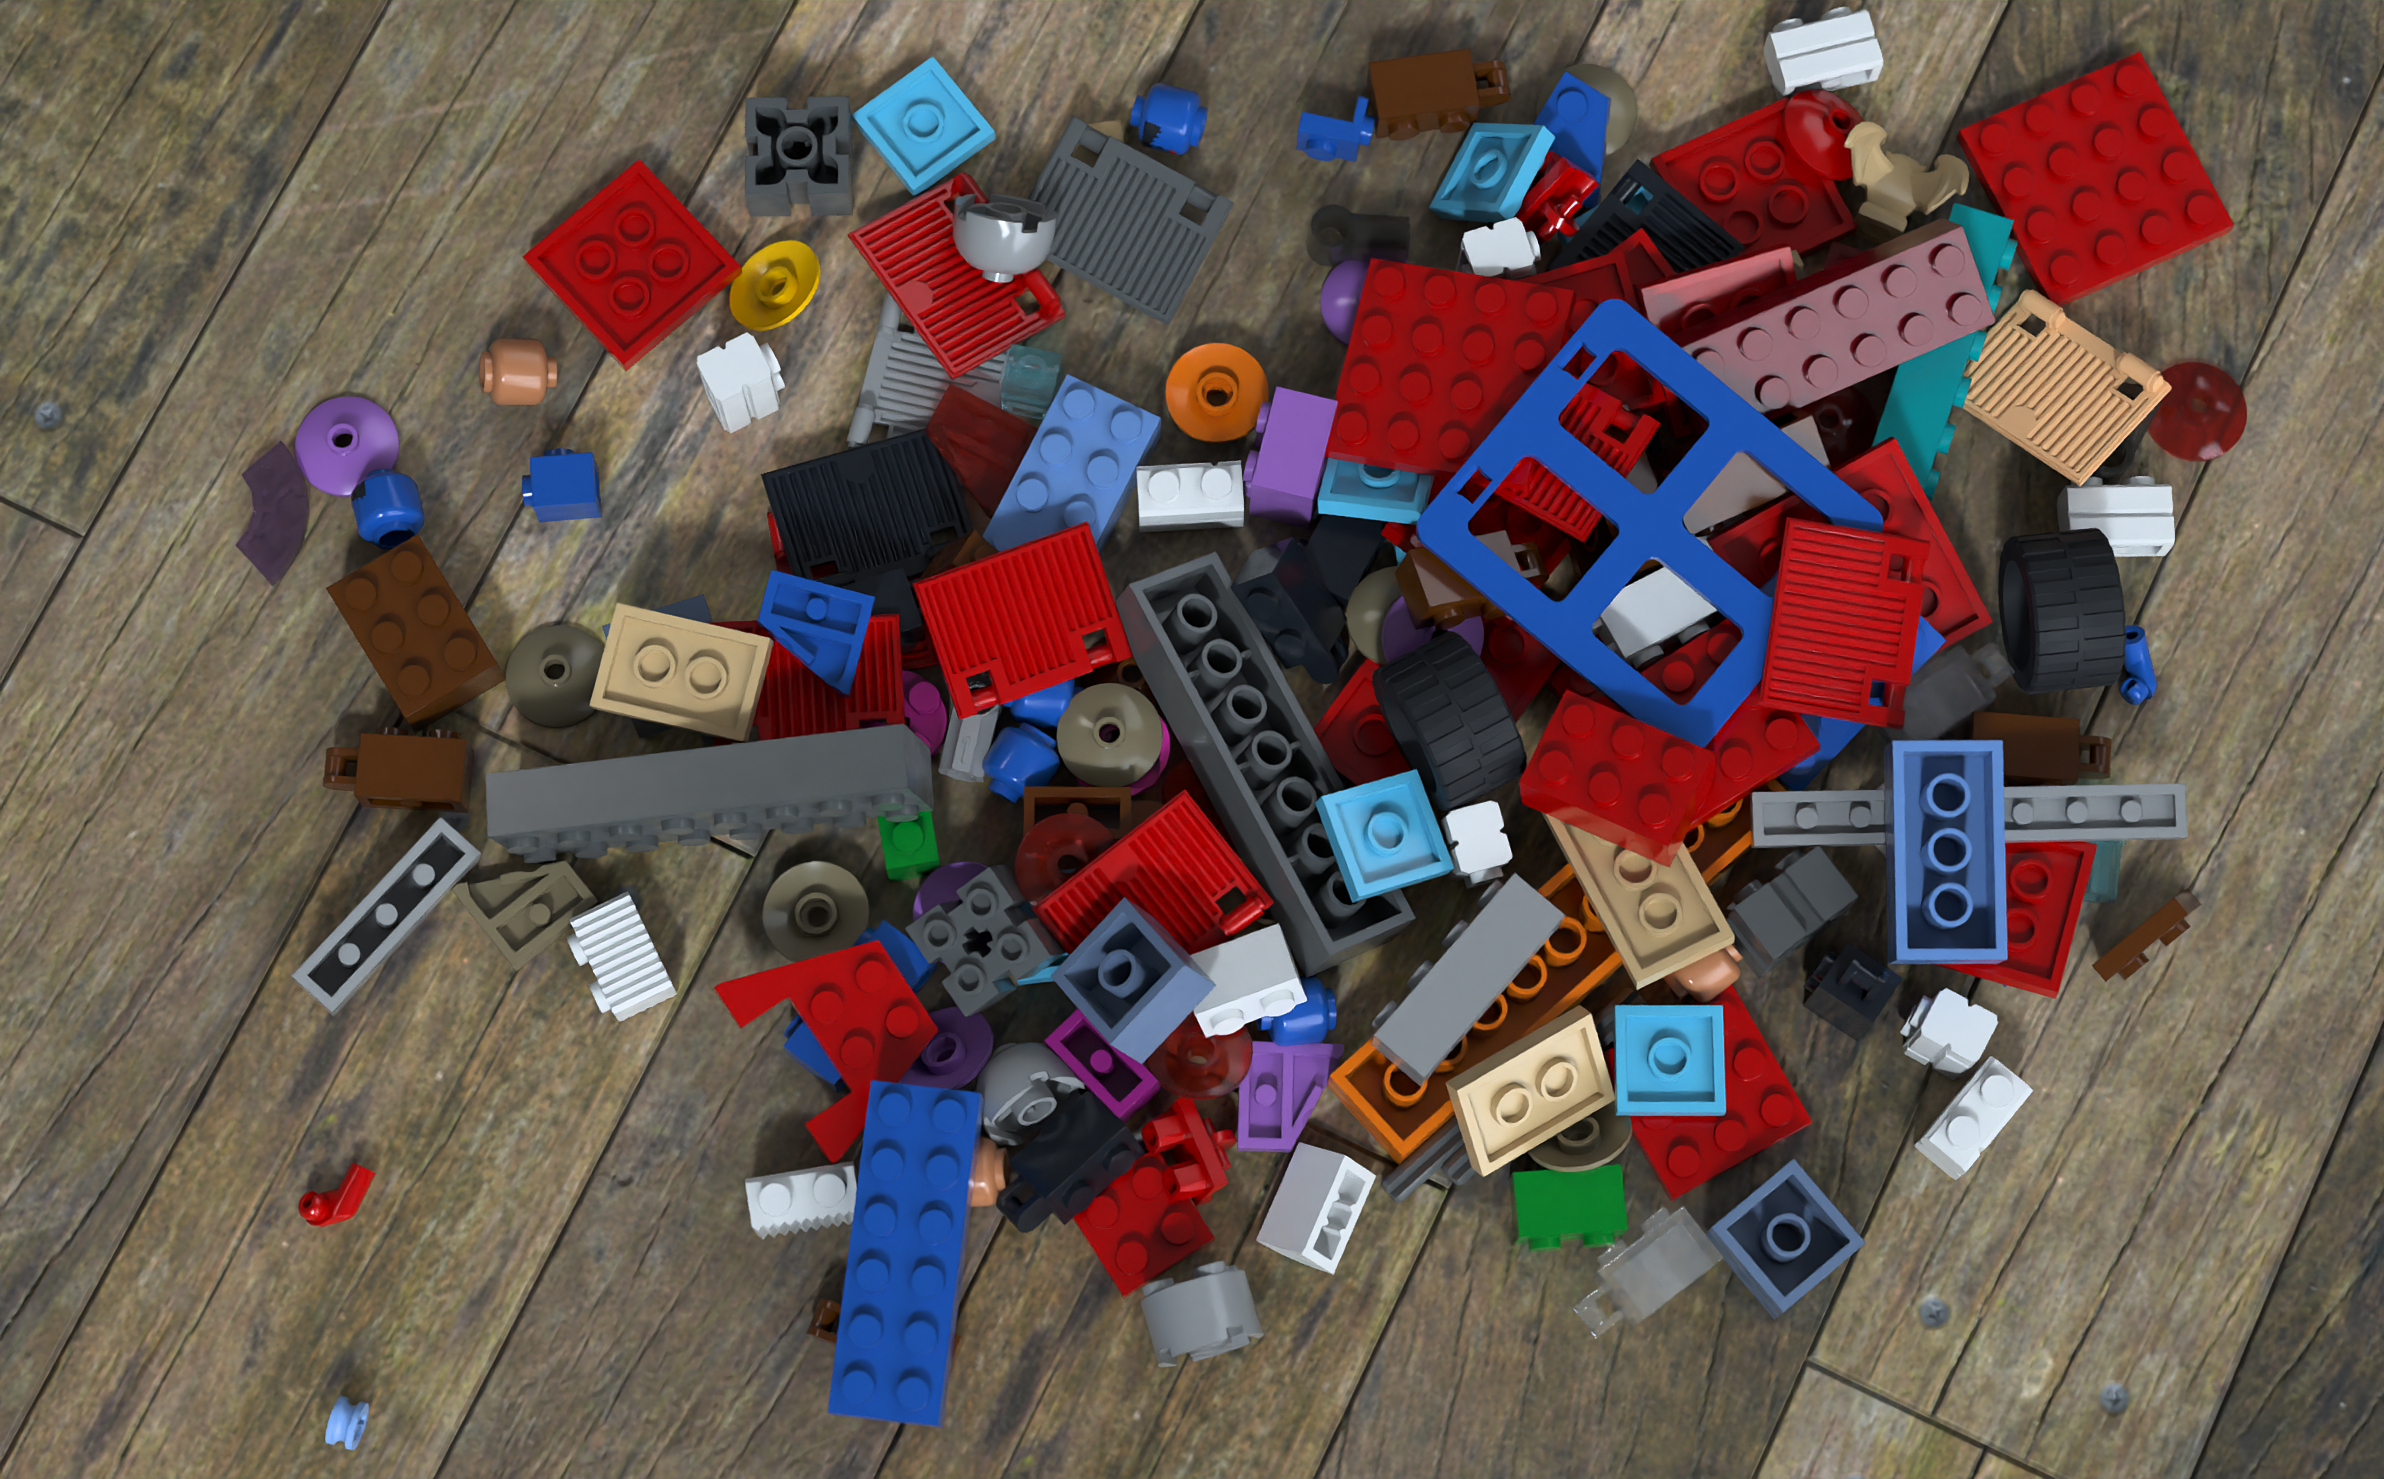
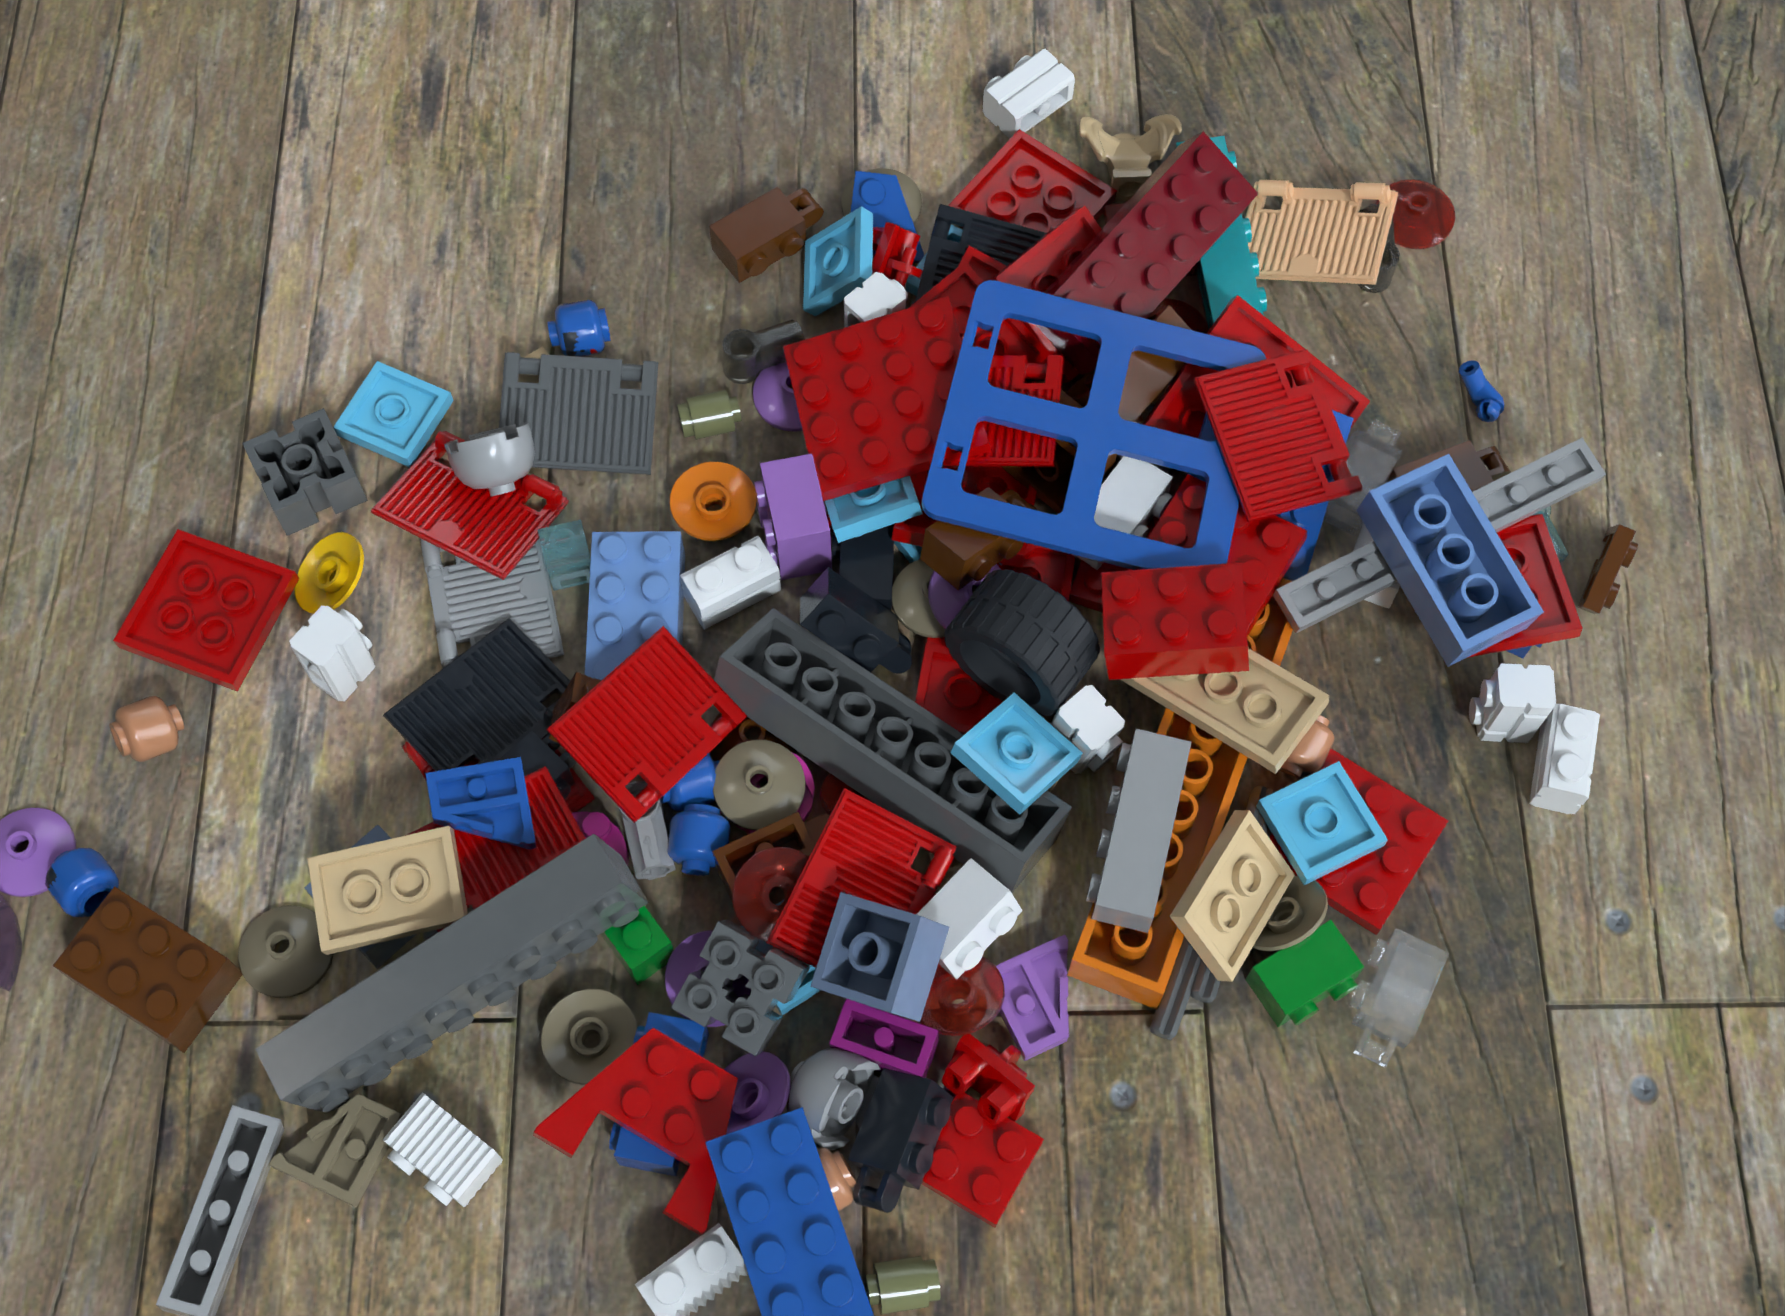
camera: 25 degrees left, 10 degrees down
(405, 770) = (186, 1086): reddish brown brick -> none
(563, 486) = (223, 799): blue brick -> none
(979, 444) = (548, 617): clear red wing -> none
(1003, 1307) = (903, 1284): none -> olive brick
(1201, 1314) = (1069, 1206): light grey brick -> none
(1261, 288) = (709, 415): none -> olive brick
(1306, 1021) = (1027, 932): blue head -> none
(1316, 1207) = (1111, 1074): white brick -> none
(1334, 138) = (708, 290): blue bracket -> none
(1784, 1239) = (1485, 916): sand blue brick -> none
(1793, 909) = (1348, 663): dark grey brick -> none
(1816, 130) = (1058, 142): red dish -> none
(1850, 990) = (1425, 706): black brick -> none
(2062, 610) = (1417, 367): black tyre -> none
(2095, 180) = (1262, 94): red plate -> none
(2131, 515) = (1407, 301): white brick -> none

